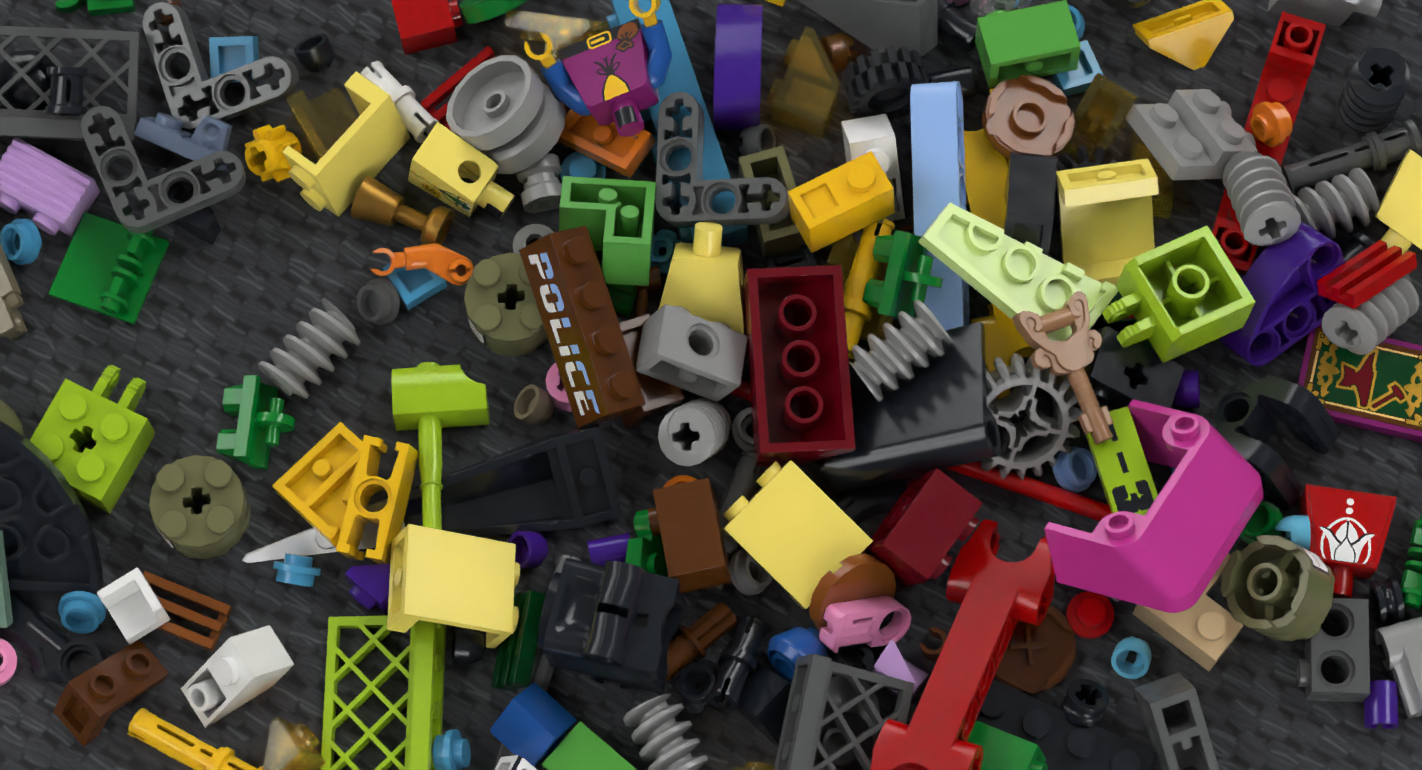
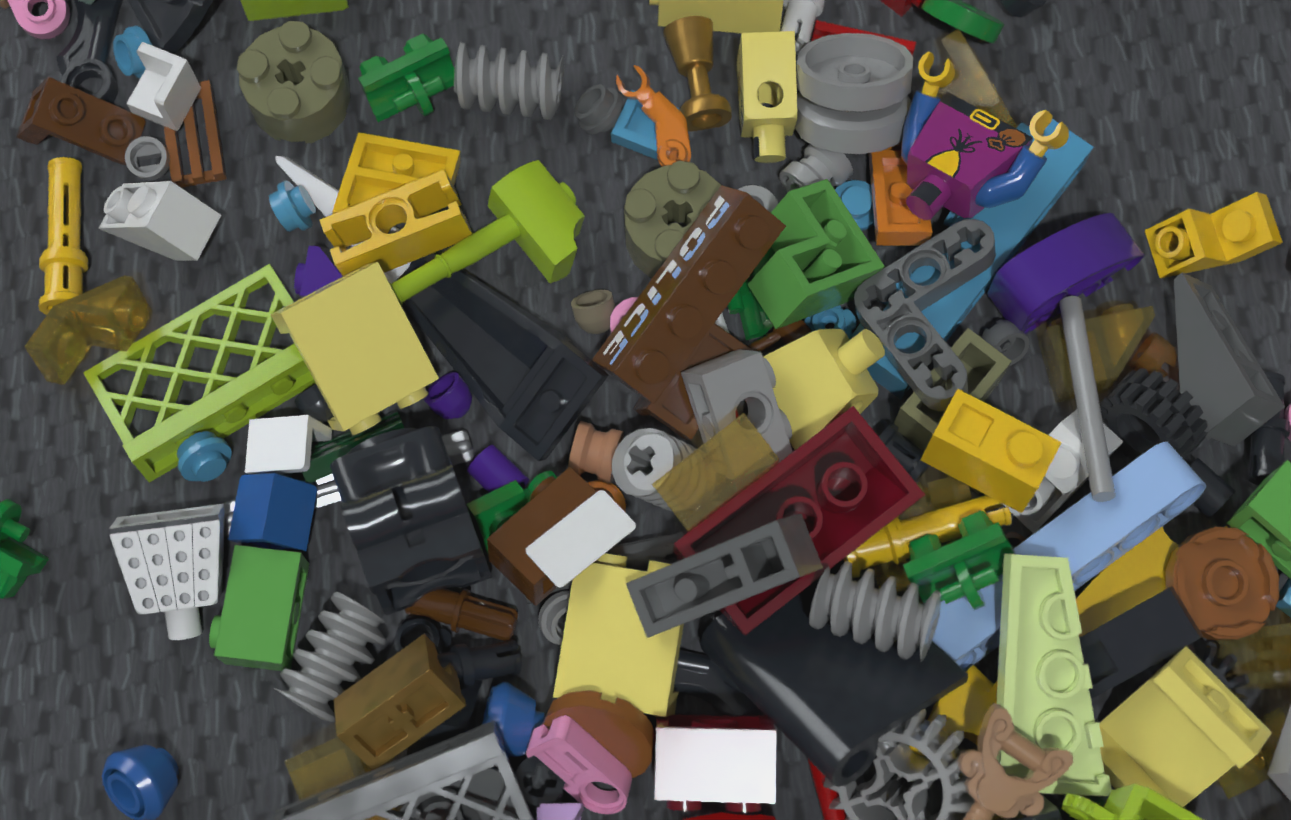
camera: 55 degrees right, 0 degrees up
(189, 658) = (147, 148): none -> light grey hinge
(488, 686) = (283, 444): none -> white panel
(643, 472) = (594, 451): none -> nougat wheel
(712, 513) = (580, 538): none -> white sticker
(733, 390) = (716, 472): none -> clear yellow panel
(740, 714) = (397, 703): none -> pearl gold hinge
(809, 431) = (724, 575): none -> dark grey slope
(844, 114) = (1087, 399): none -> light grey bar

